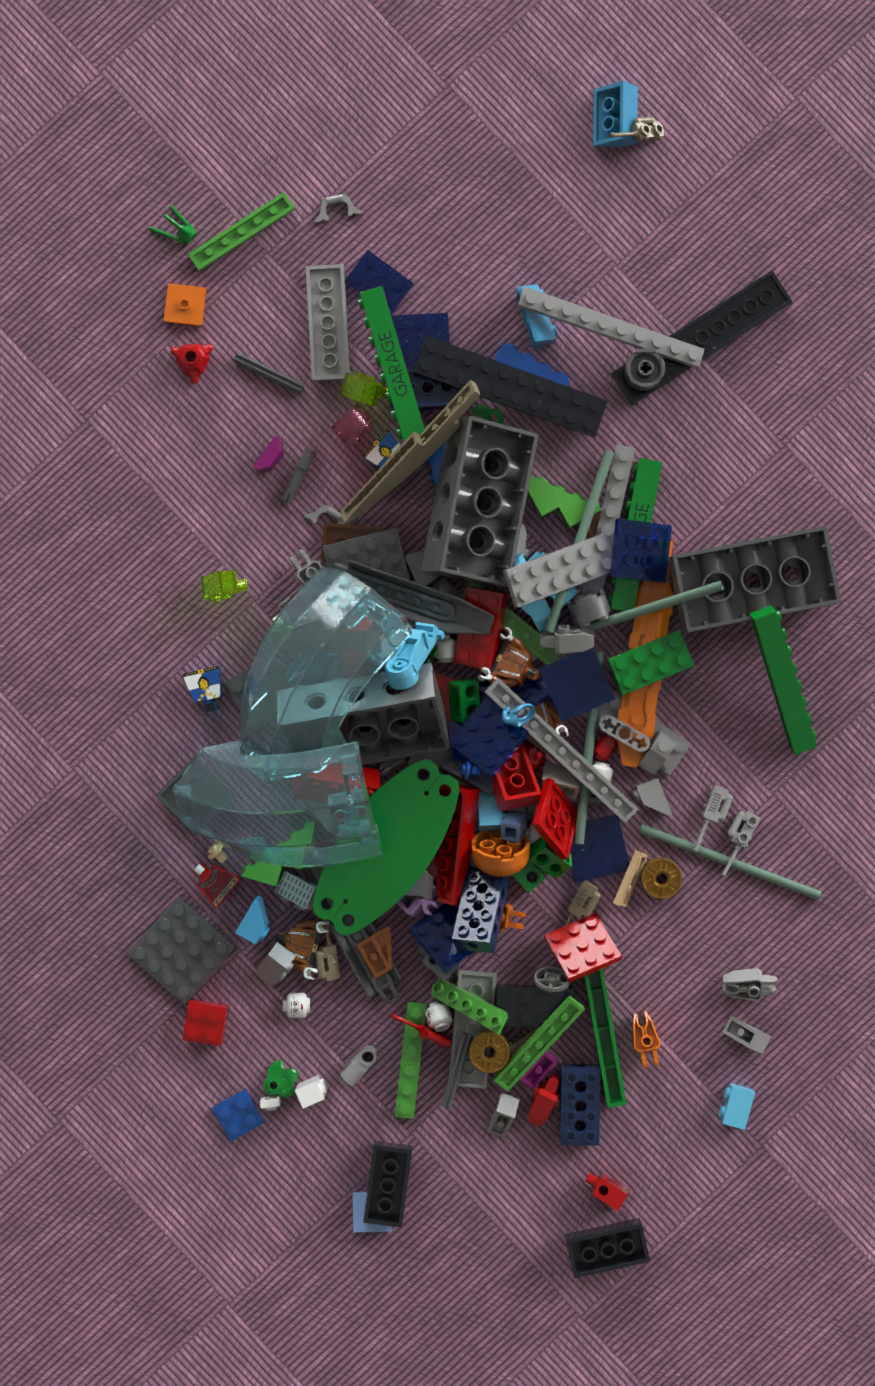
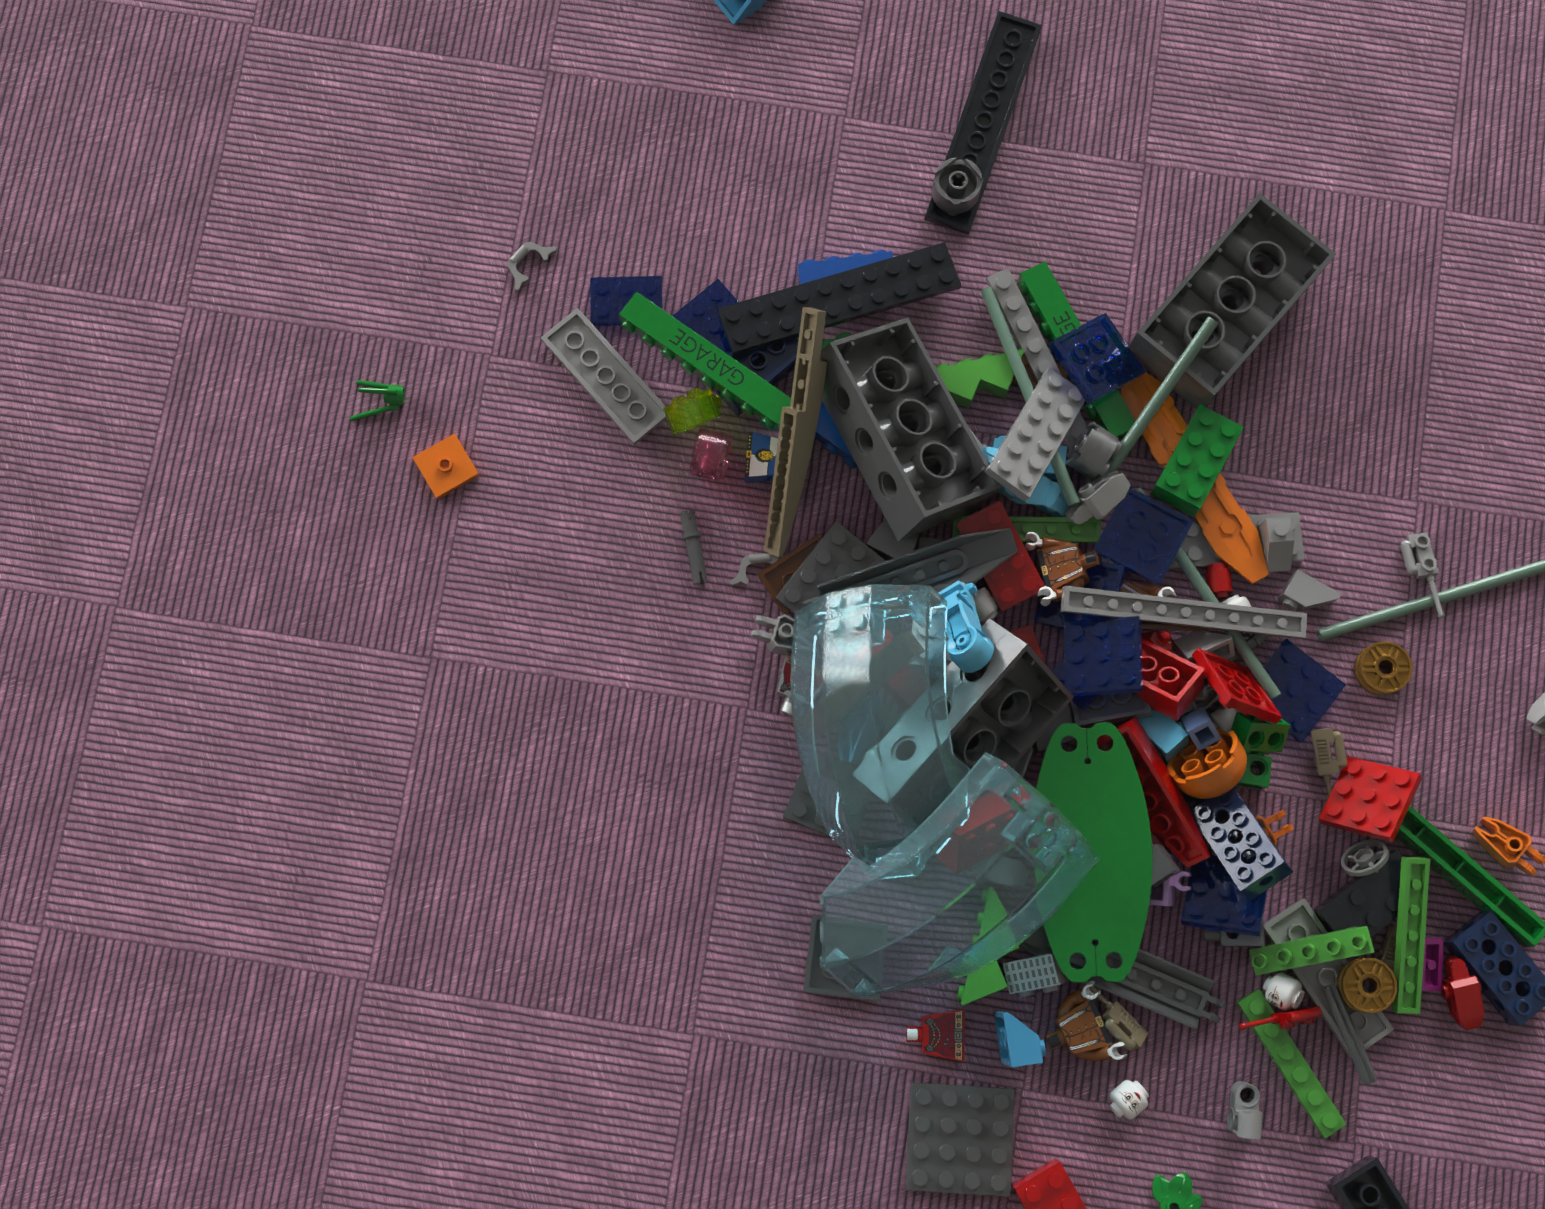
camera: 35 degrees left, 10 degrees down
(192, 359) = (495, 513): red rock -> none
(205, 686) = (766, 835): torso -> none
(216, 851) = (913, 1002): light nougat plate -> none
(221, 585) = (702, 716): clear neon green brick -> none
(241, 231) = (449, 353): bright green plate -> none
(269, 373) = (584, 469): dark grey axle -> none
(270, 456) = (650, 550): magenta slope -> none
(275, 965) = (1073, 1072): light grey brick -> none
(311, 1091) = (1221, 1180): white brick -> none
(377, 952) = (1167, 972): dark orange wing -> none
(463, 698) = (1043, 638): green brick -> none
(467, 770) = (1109, 705): blue plate -> none
(503, 1115) = (1434, 1044): light grey slope -> none
(511, 717) = (1114, 613): dark azure piece -> none
(538, 326) = (807, 217): dark azure slope -> none
(610, 327) = (889, 170): light grey plate -> none
(630, 878) = (1354, 693): tan tile -> none
(634, 745) = (1224, 558): light grey beam -> none
(711, 809) = (1374, 564): light grey piece -> none
(783, 679) = (1341, 374): green brick -> none

